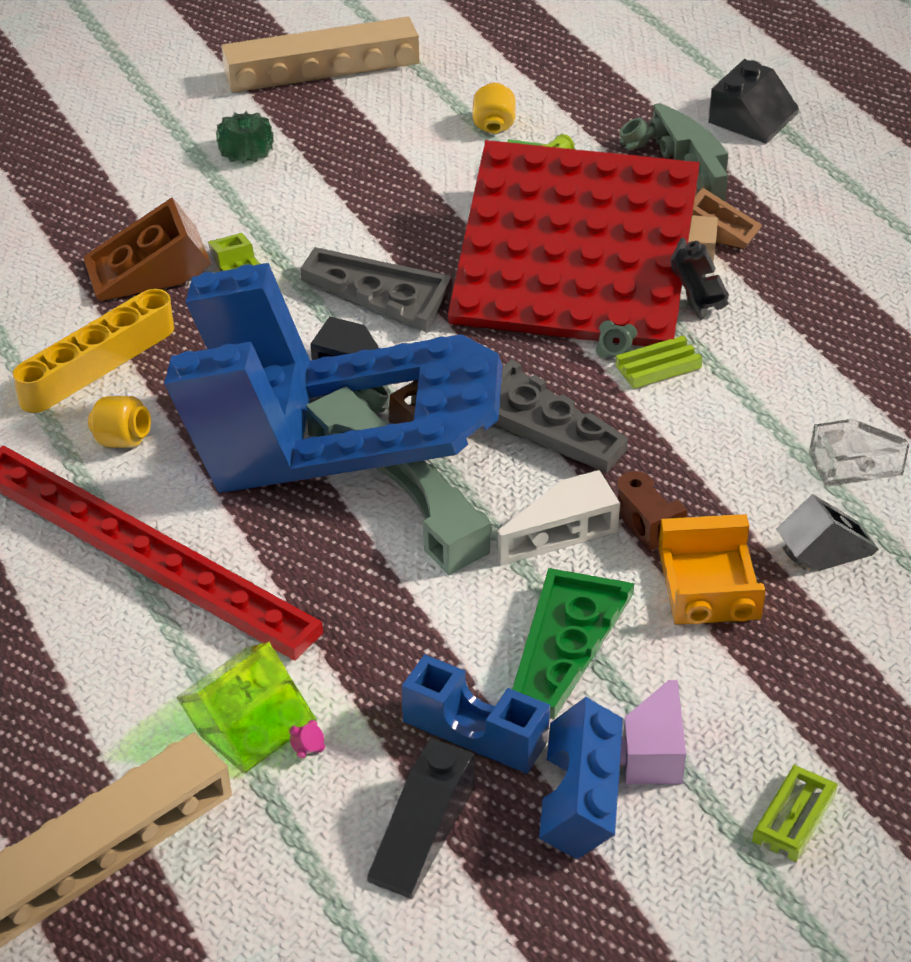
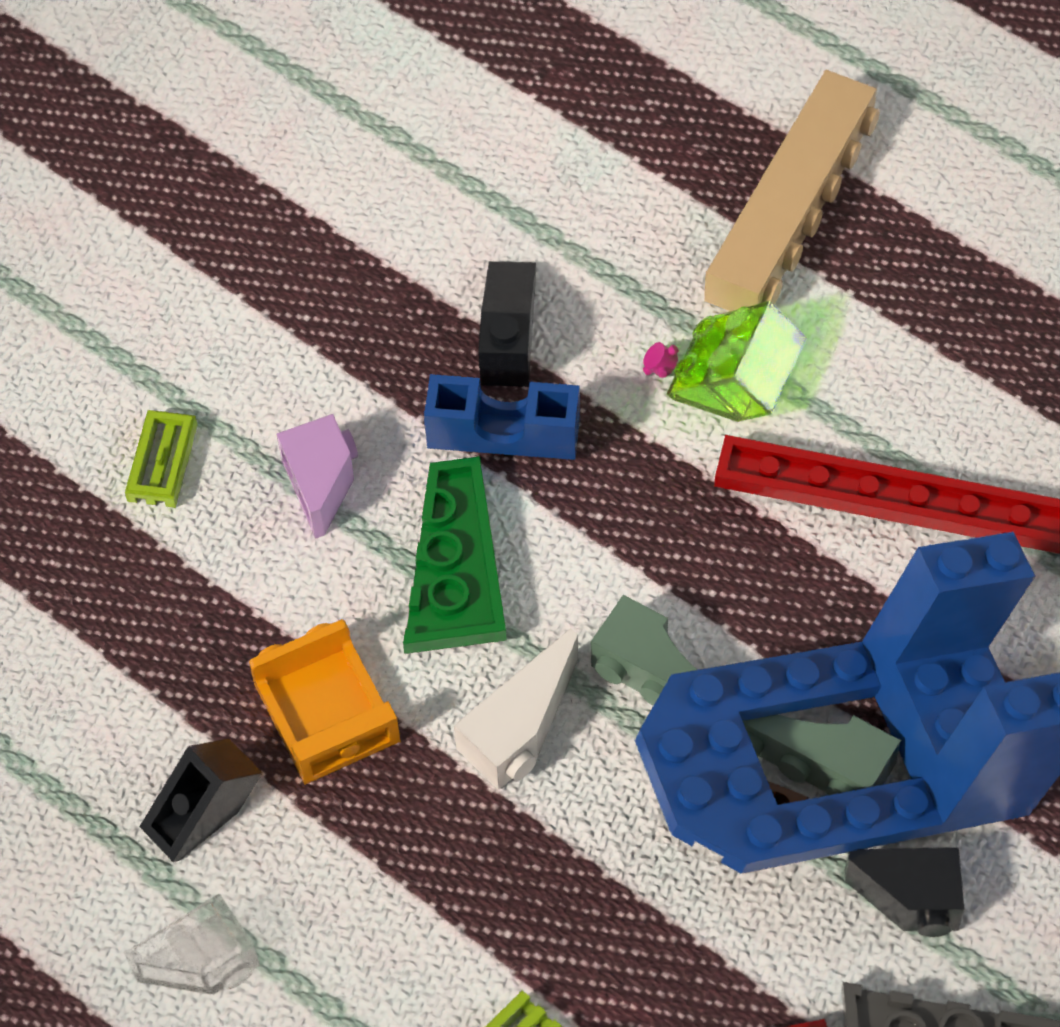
camera: 160 degrees right, 15 degrees up
(553, 422) = (620, 879): dark grey wing -> none
(584, 805) = (376, 419): blue arch -> none
(644, 507) = (427, 764): copper leg -> none

